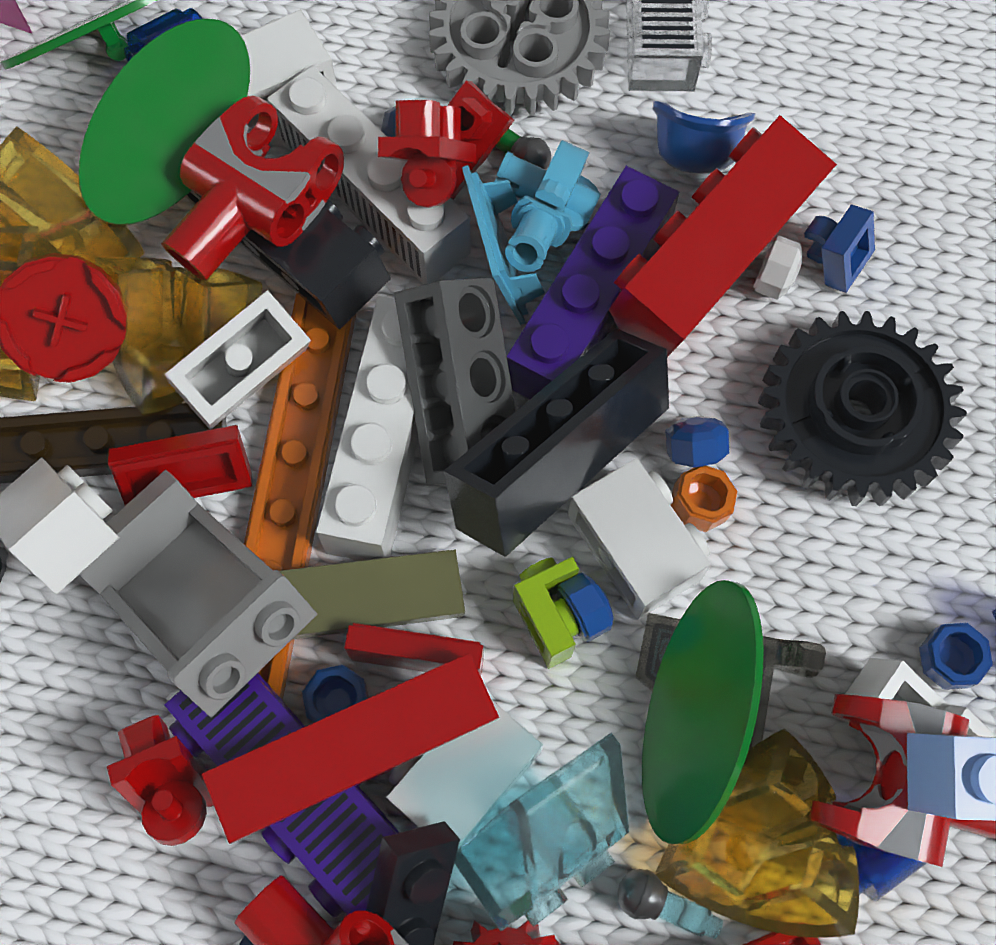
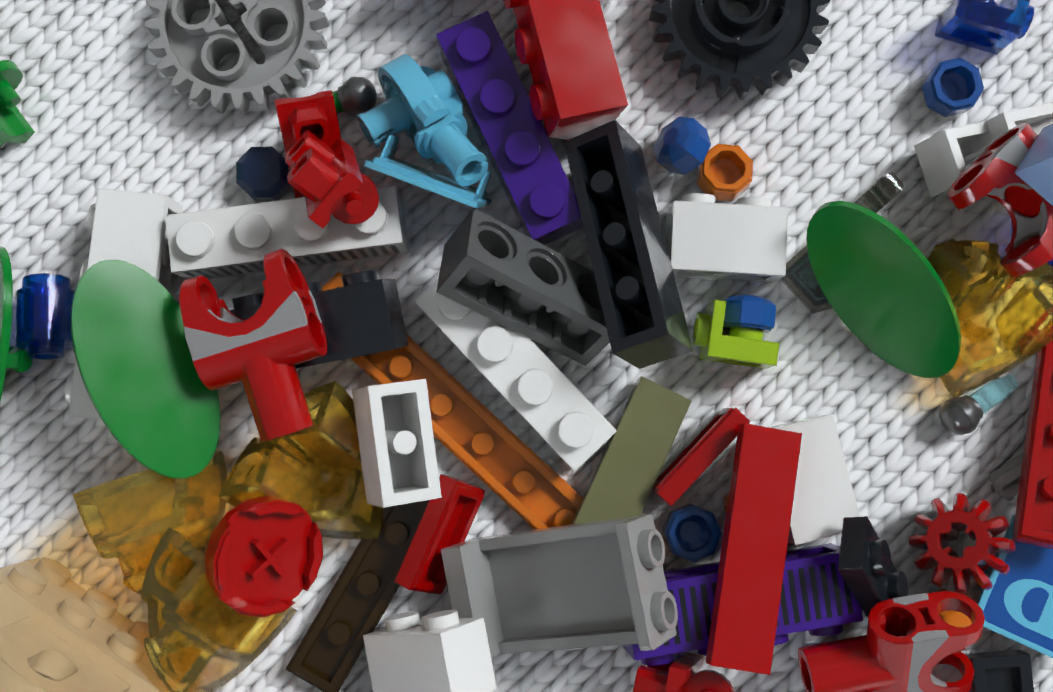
camera: 55 degrees left, 15 degrees up
(549, 837) = (896, 455): clear light blue slope -> none

